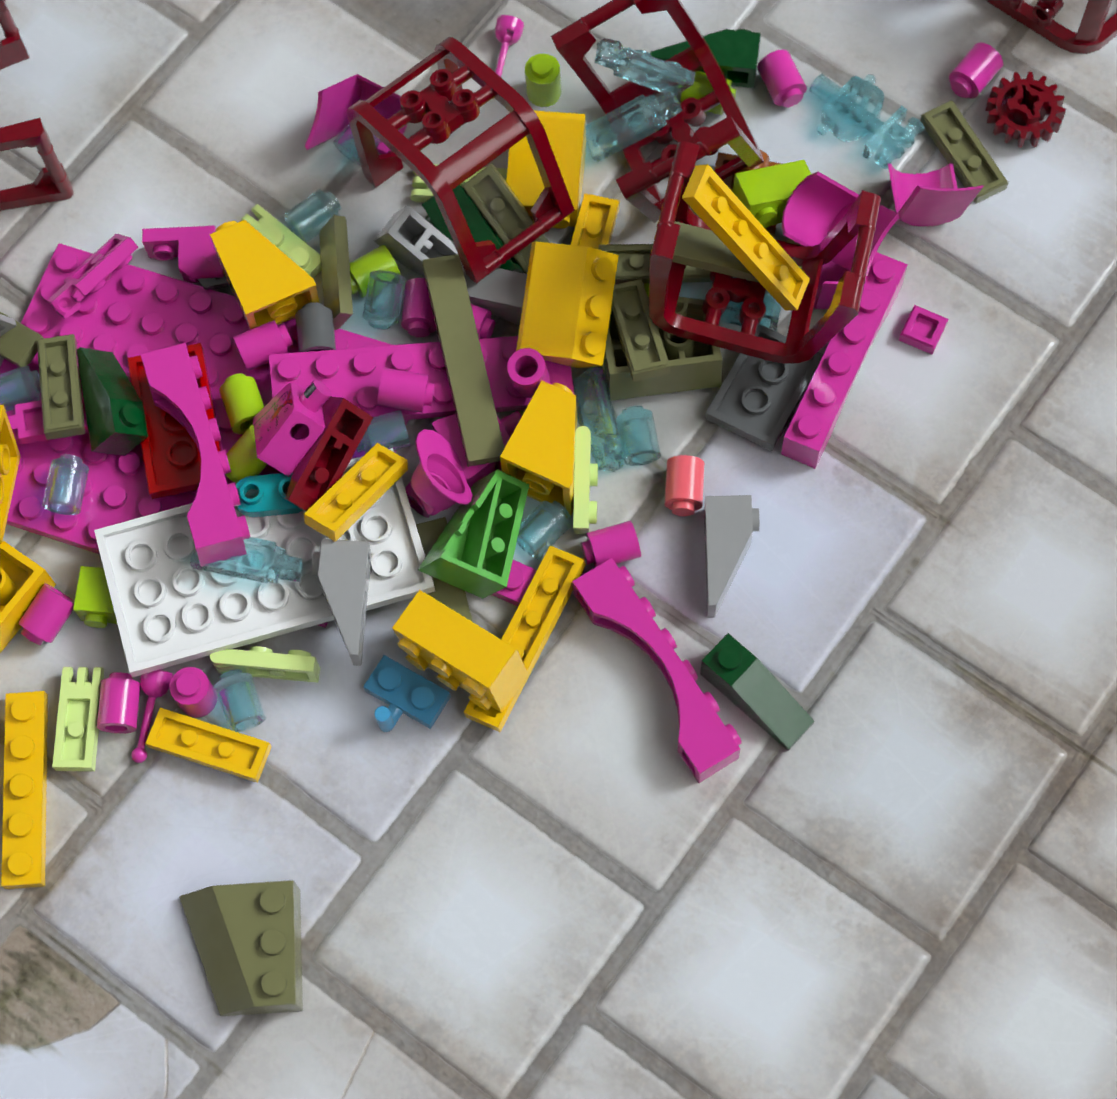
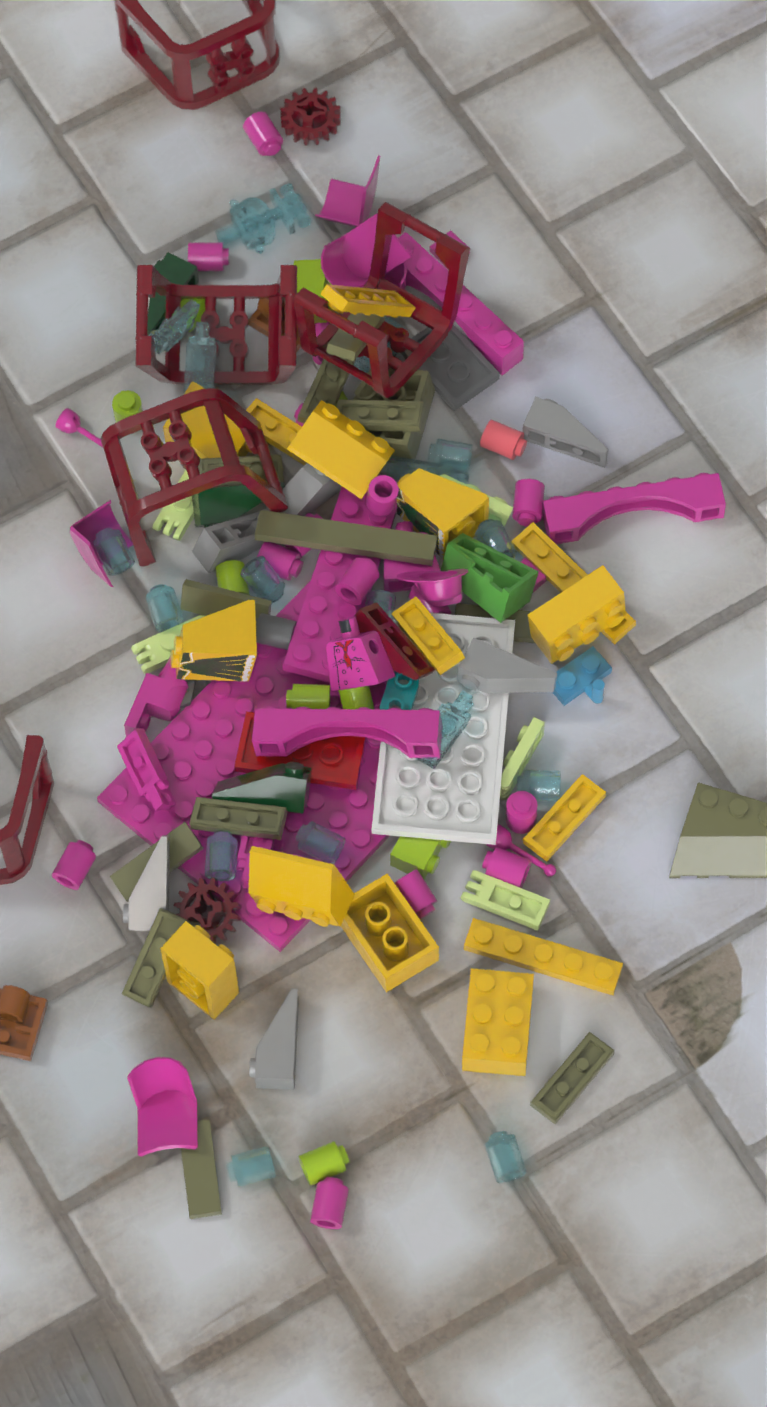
camera: 70 degrees left, 5 degrees down
(260, 342) = (267, 671): dark pink brick -> none
(755, 691) = (674, 454): slope -> none
(963, 150) = (321, 168): olive tile -> none

